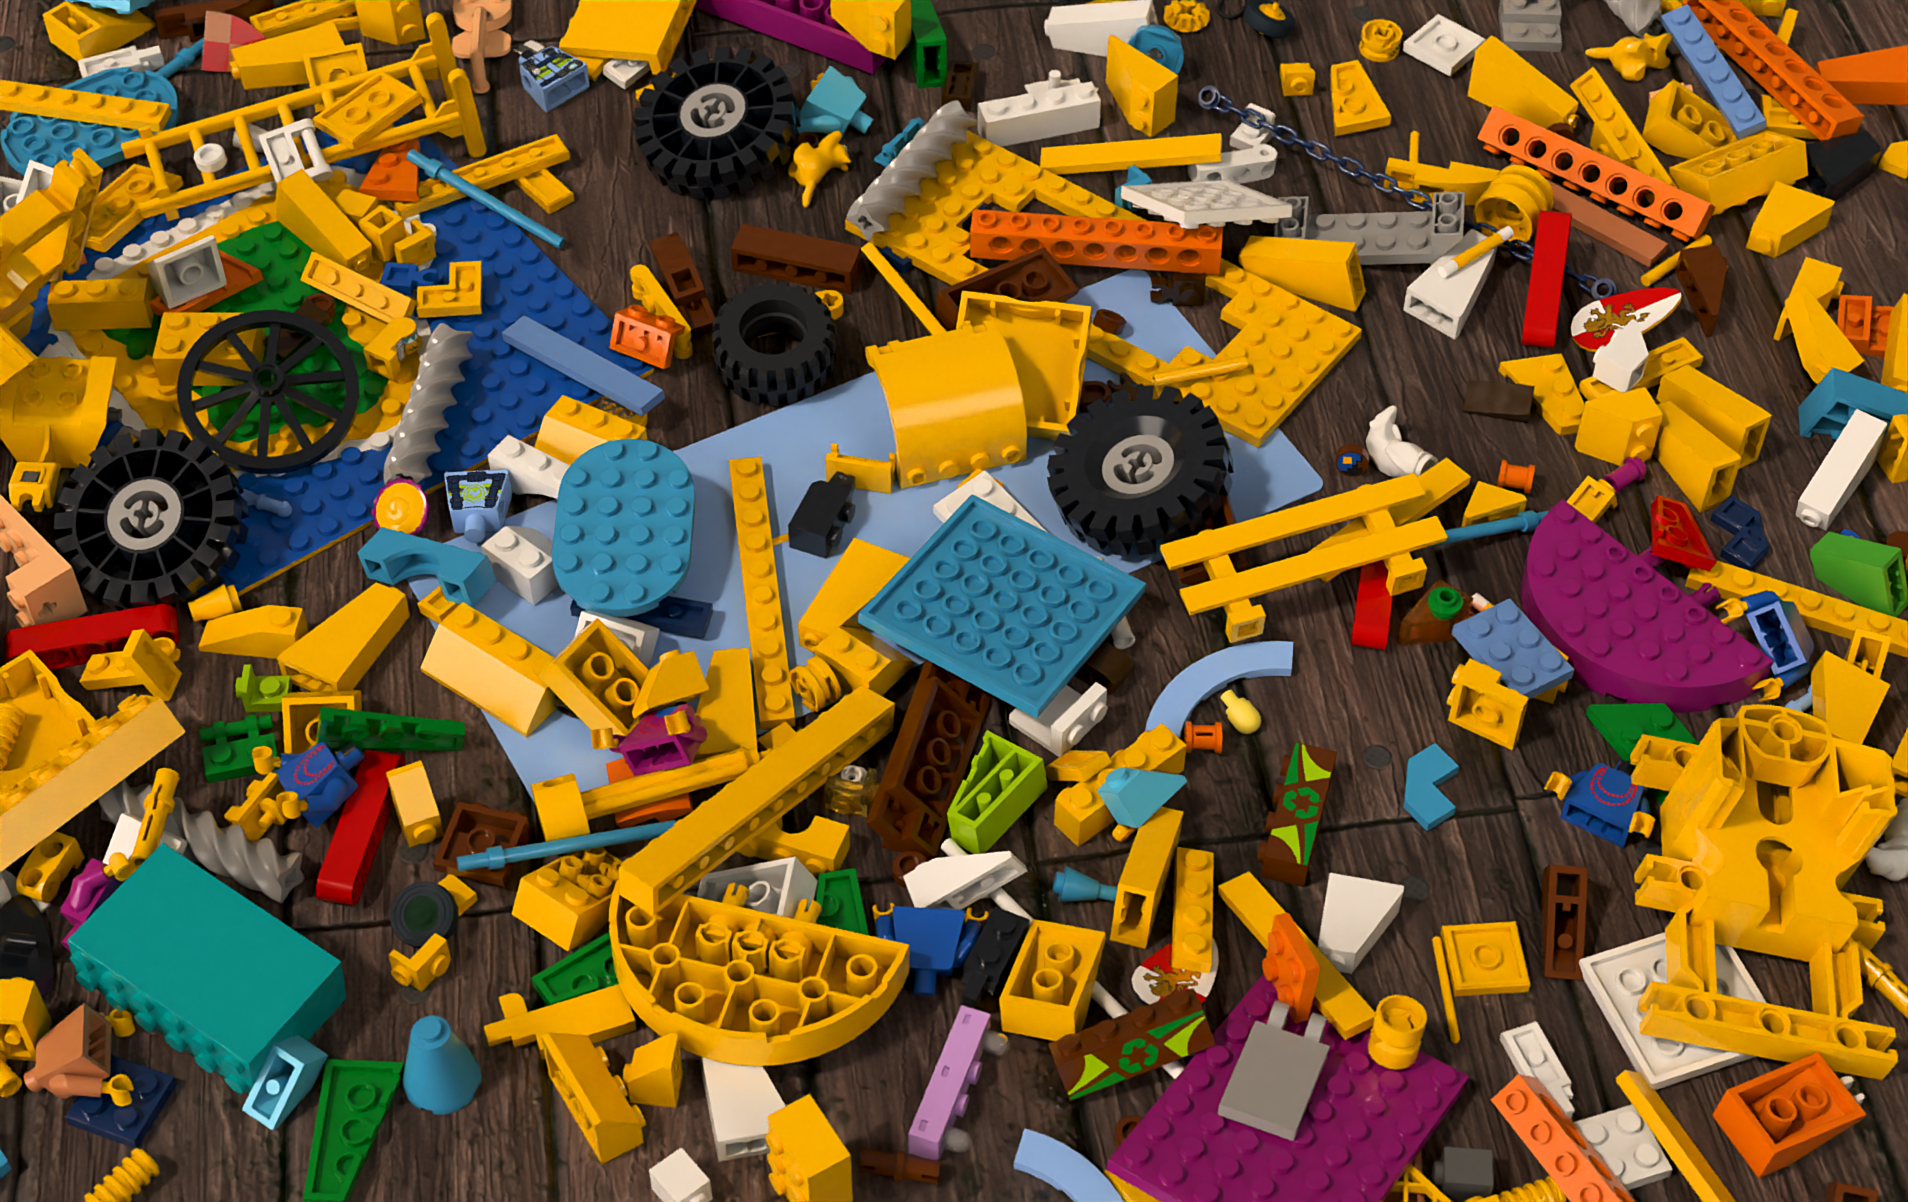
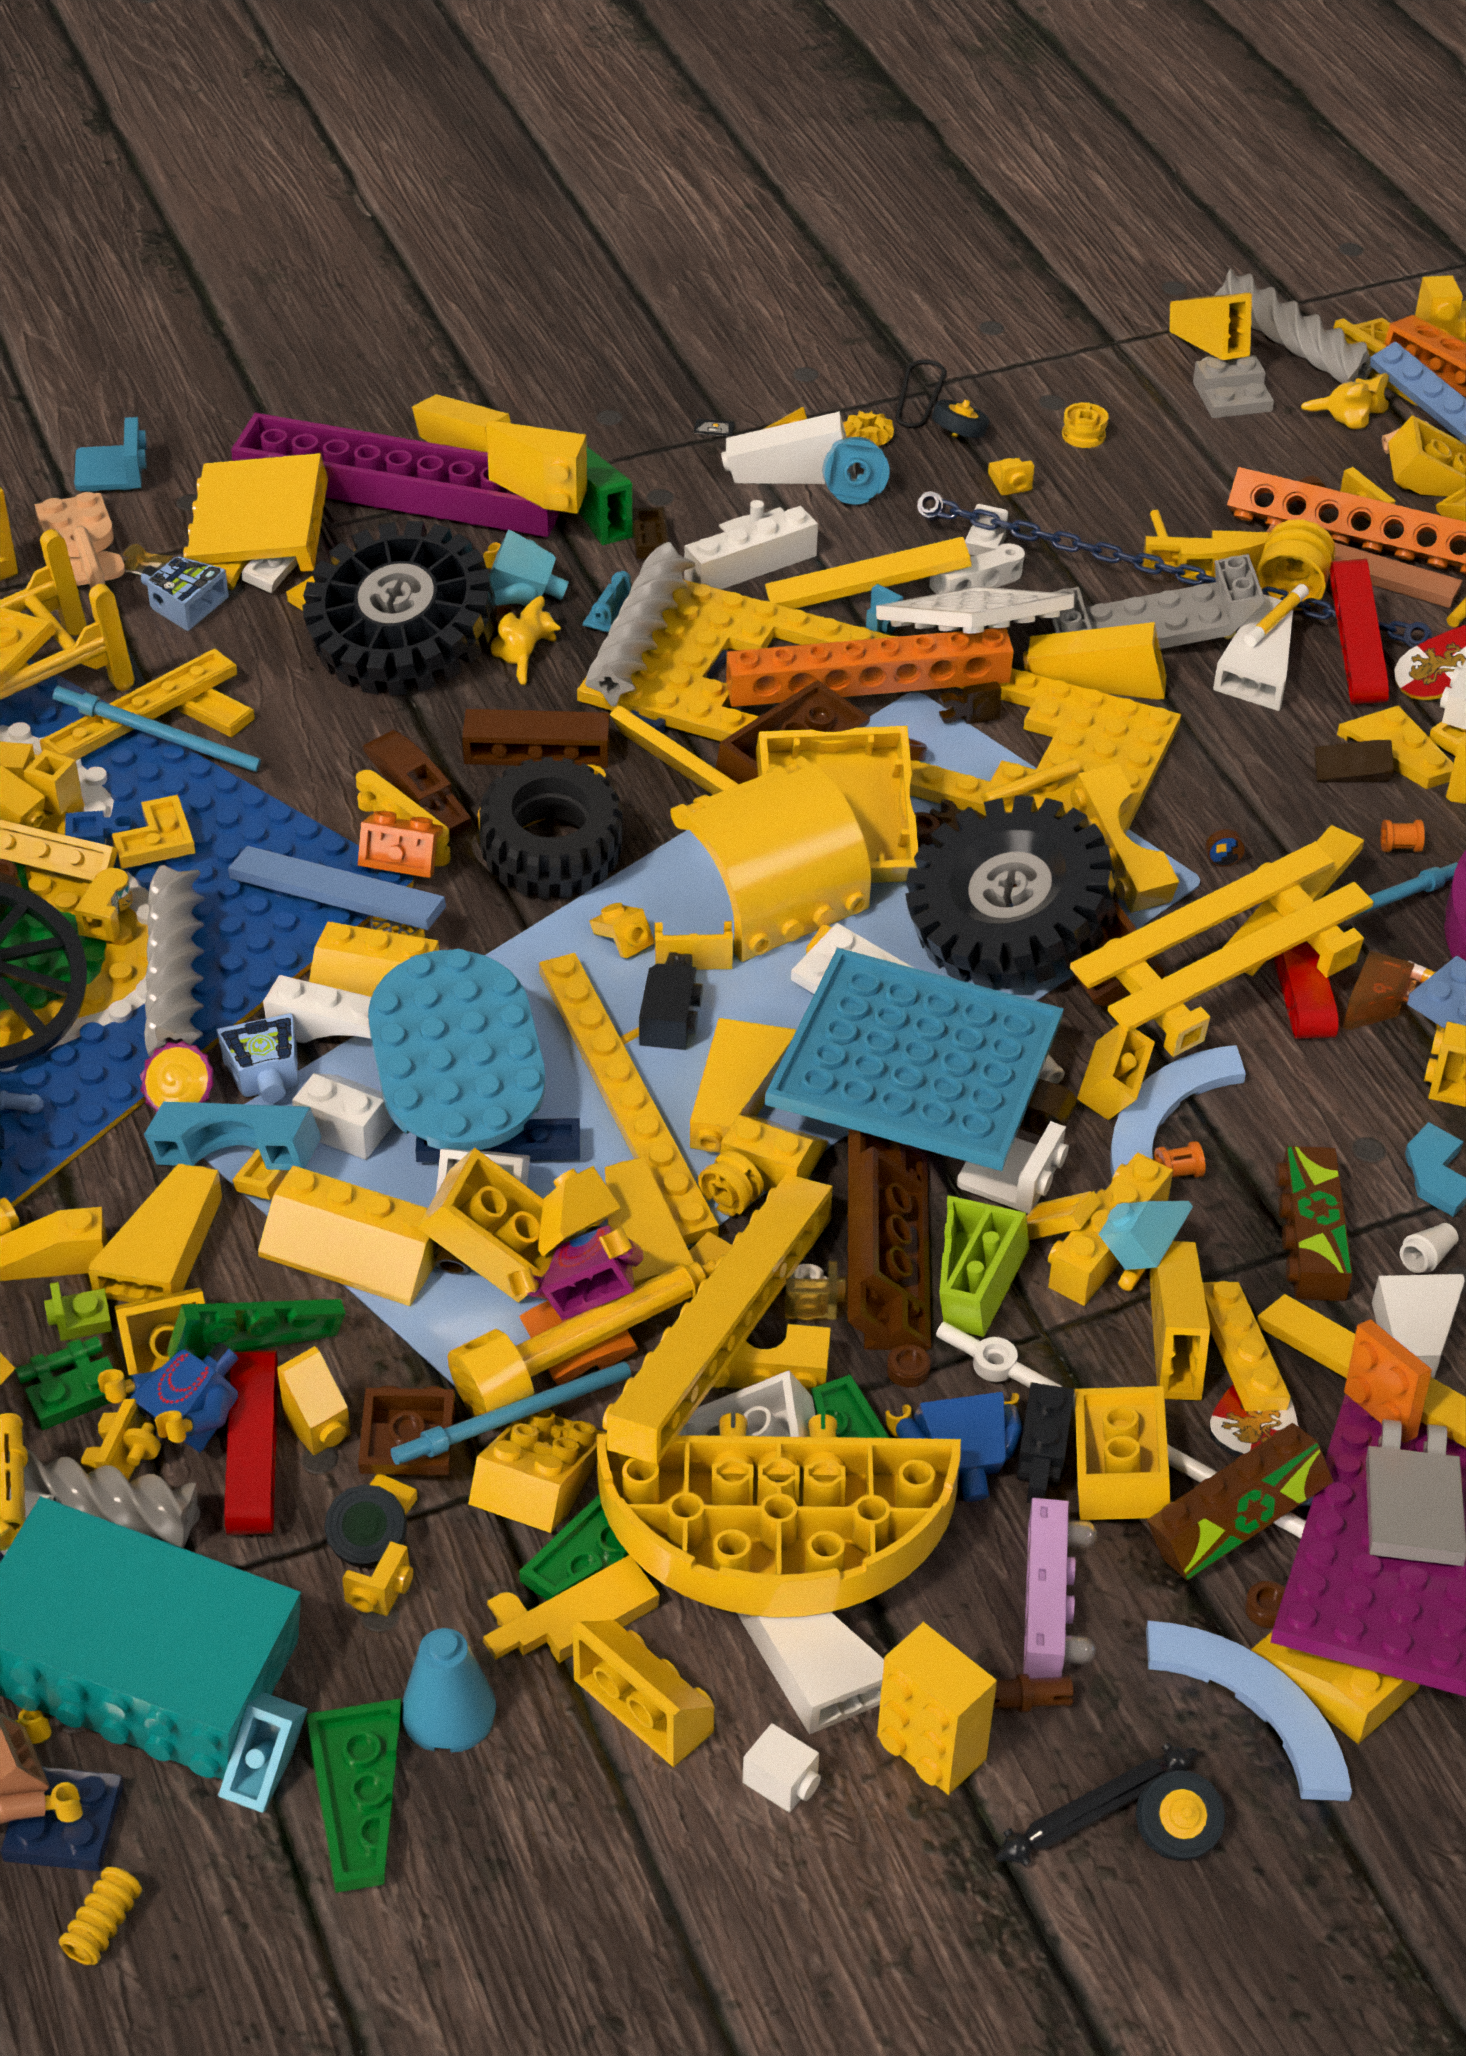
camera: 15 degrees left, 5 degrees down
(393, 175) = (40, 718): orange wing -> none
(417, 247) = (96, 791): yellow bracket -> none
(525, 38) = (138, 555): none -> clear yellow hand
(655, 1072) = (708, 1644): yellow slope -> none
(810, 442) = (626, 926): none -> yellow bracket
(961, 880) = (981, 1360): white slope -> none
(1075, 886) = (1101, 1346): dark azure cone -> none
(1141, 87) = (852, 504): yellow slope -> none
(1175, 646) = (1115, 1071): none -> yellow brick
(1241, 713) = (1209, 1130): light yellow cylinder -> none
(1266, 471) = (1141, 873): none -> yellow arch
(1355, 100) = (1081, 487): yellow wing -> none
(1389, 855) = (1428, 1247): none -> white cone
(1391, 453) = (1267, 835): white animal -> none
(1443, 45) = (1152, 420): white plate -> none
(1445, 602) = (1389, 972): green plate -> none
(1492, 504) = (1392, 866): yellow slope -> none
(1517, 87) = (1237, 440): yellow slope -> none
(1603, 105) = (1341, 454): yellow plate -> none

